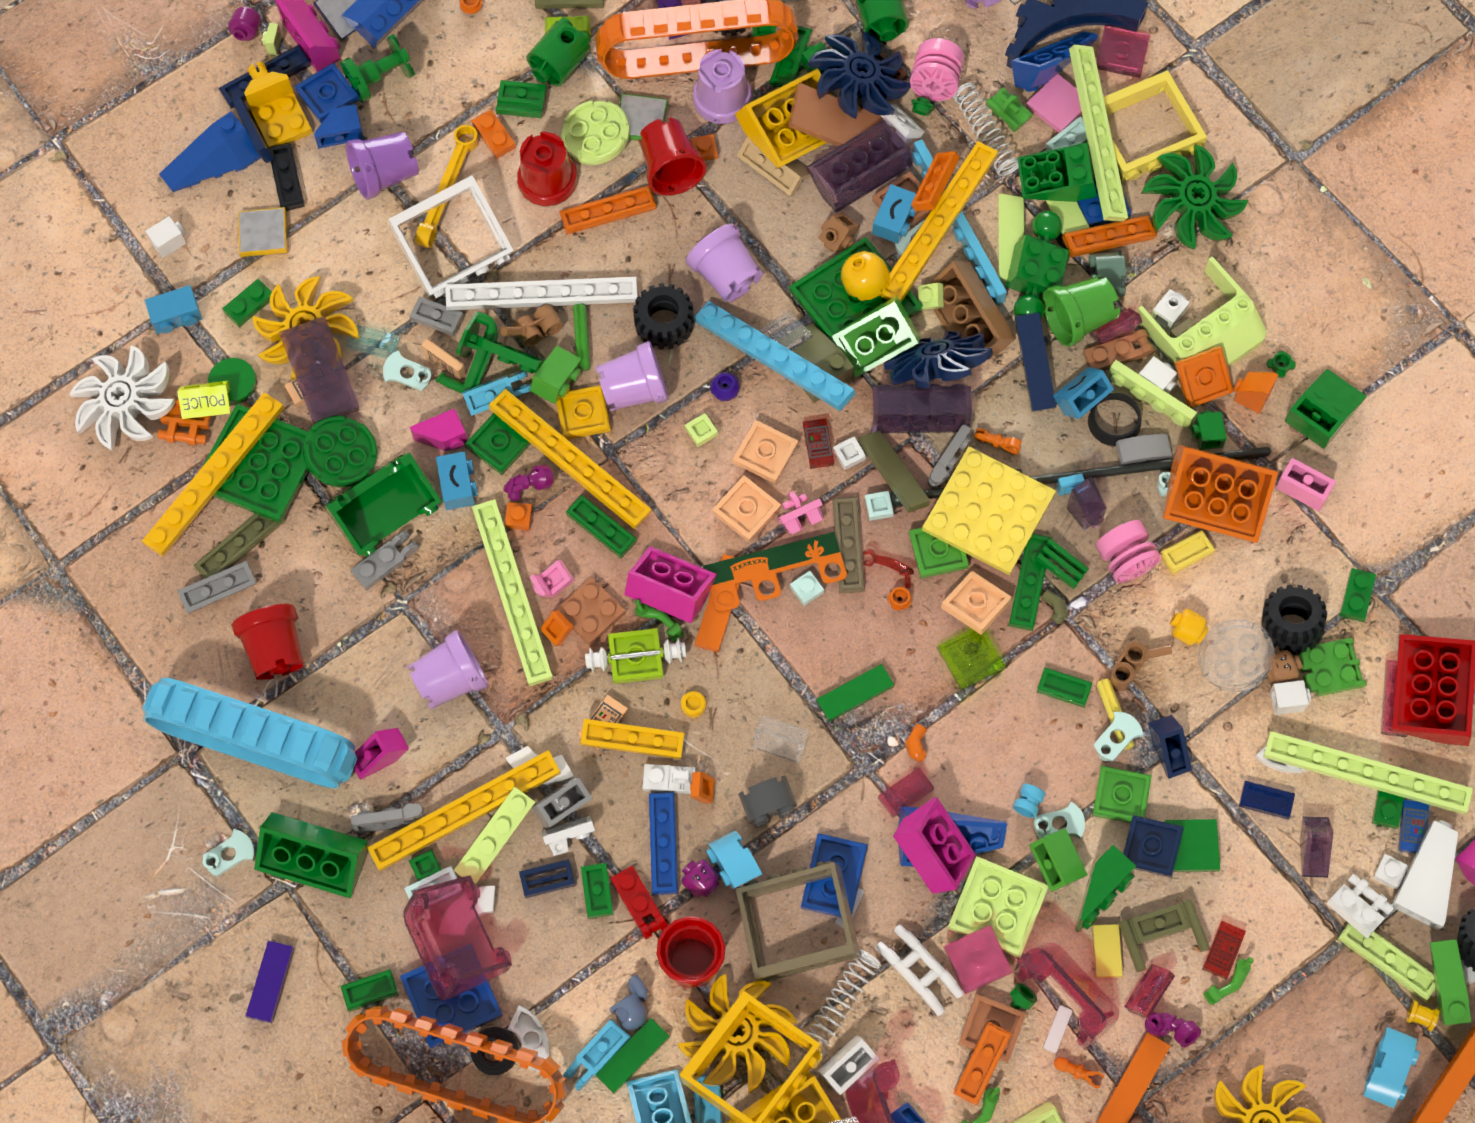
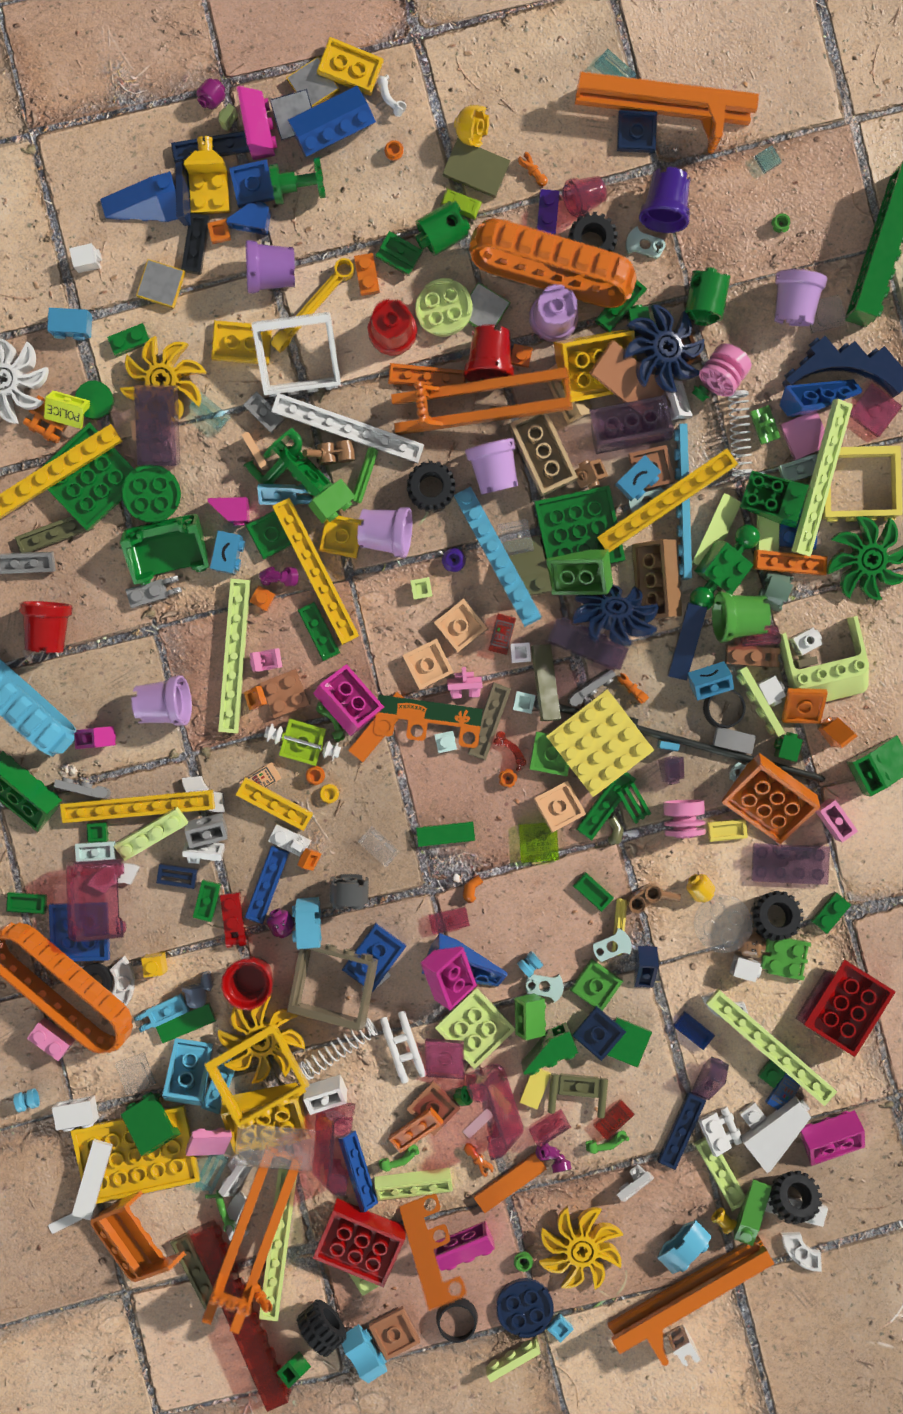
camera: 20 degrees right, 20 degrees up
(308, 153) = (219, 231): none -> orange plate
(376, 257) = (236, 343): none -> yellow tile
(396, 362) = (214, 443): light aqua piece -> none
(563, 994) = (154, 964): none -> yellow brick
(622, 217) = (428, 392): none -> orange piece
(667, 689) = (315, 775): none -> orange plate
(775, 231) = (543, 453): none -> tan brick
(864, 275) = (592, 521): yellow cylinder -> none
(931, 296) = (635, 554): yellowish green plate -> none
(935, 181) = (679, 467): orange plate -> none
(1280, 556) = (790, 863): none -> clear purple bracket
(1281, 357) = (870, 716): green plate -> none
(1293, 1010) = (640, 1179): none -> white hinge
(1314, 928) = (681, 1130): none -> dark blue tile

